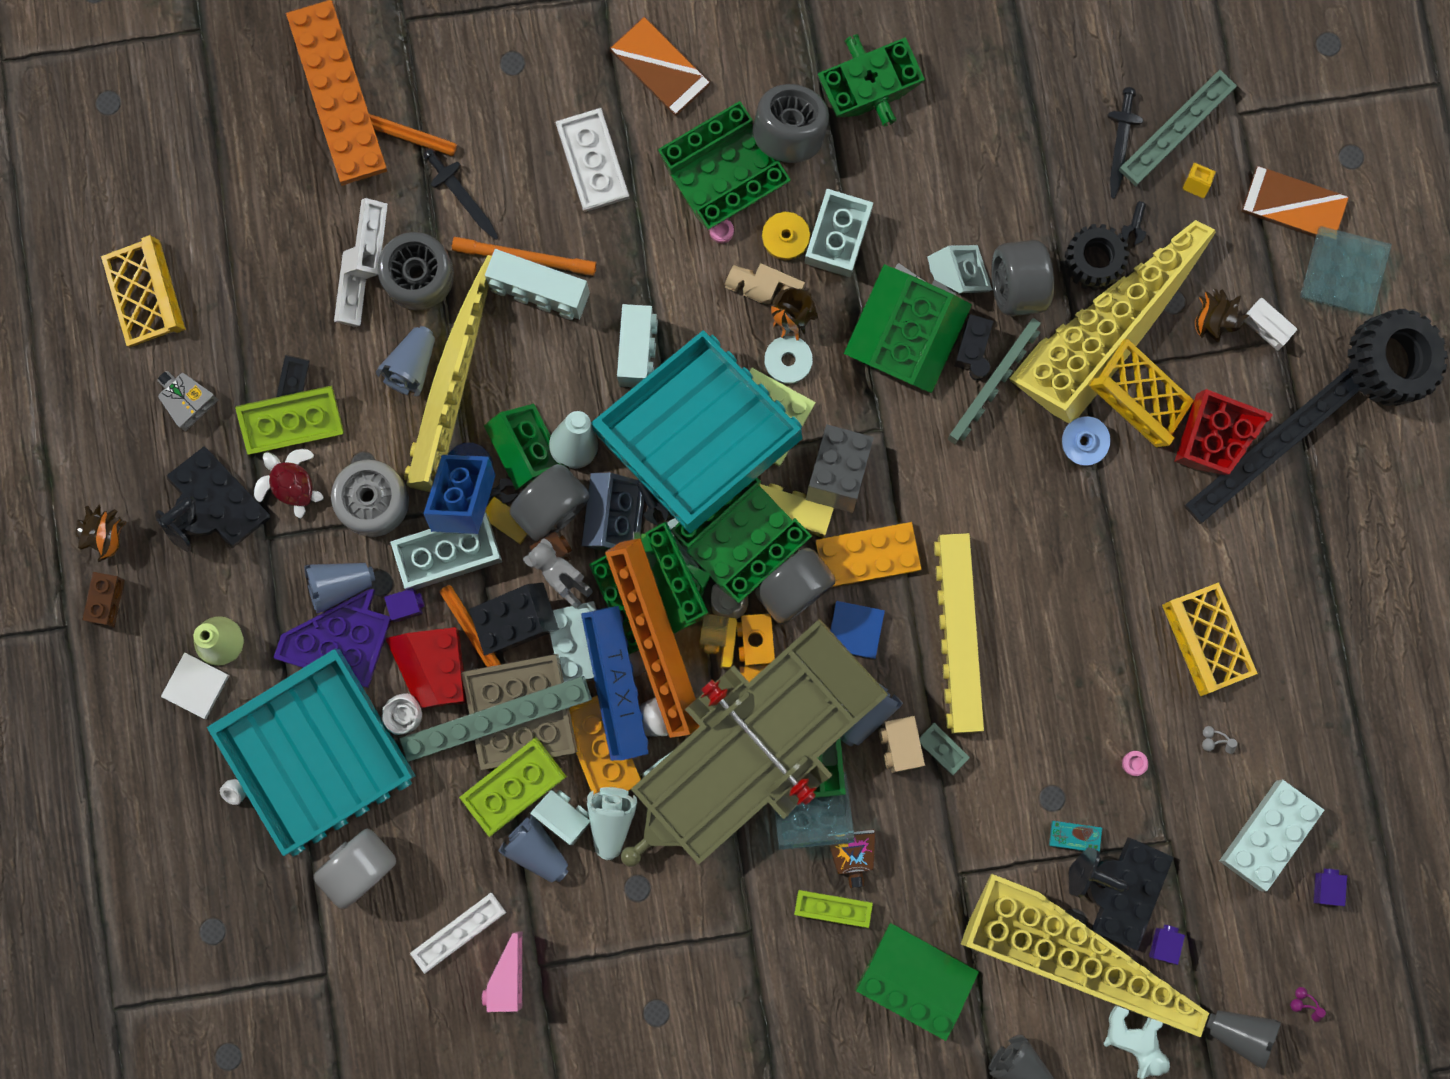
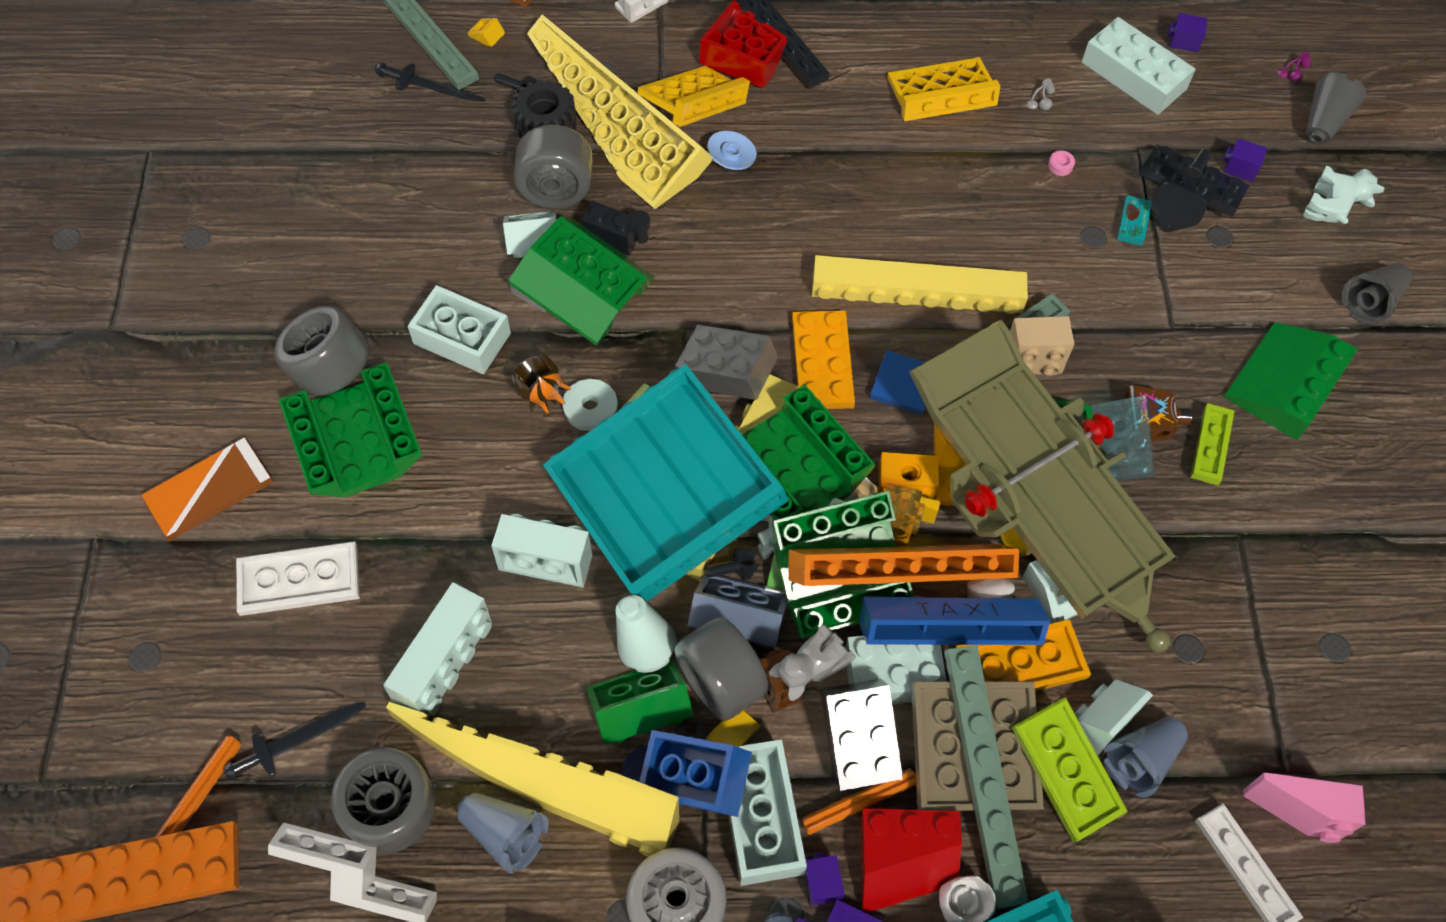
camera: 85 degrees left, 20 degrees down
(575, 265) = (369, 731): orange piece -> none
(610, 819) = (1113, 653): light aqua cone -> none
(723, 232) = (429, 451): bright pink tile -> none
(761, 285) = (496, 415): tan plate -> none
(781, 247) = (449, 398): yellow plate -> none
(795, 585) = (862, 411): dark grey wheel -> none
(890, 67) = (294, 272): green slope -> none
(989, 391) = (660, 222): sand green plate -> none
(1046, 940) = (1244, 254): light yellow wedge -> none
(1218, 315) = (627, 27): dark brown hair -> none

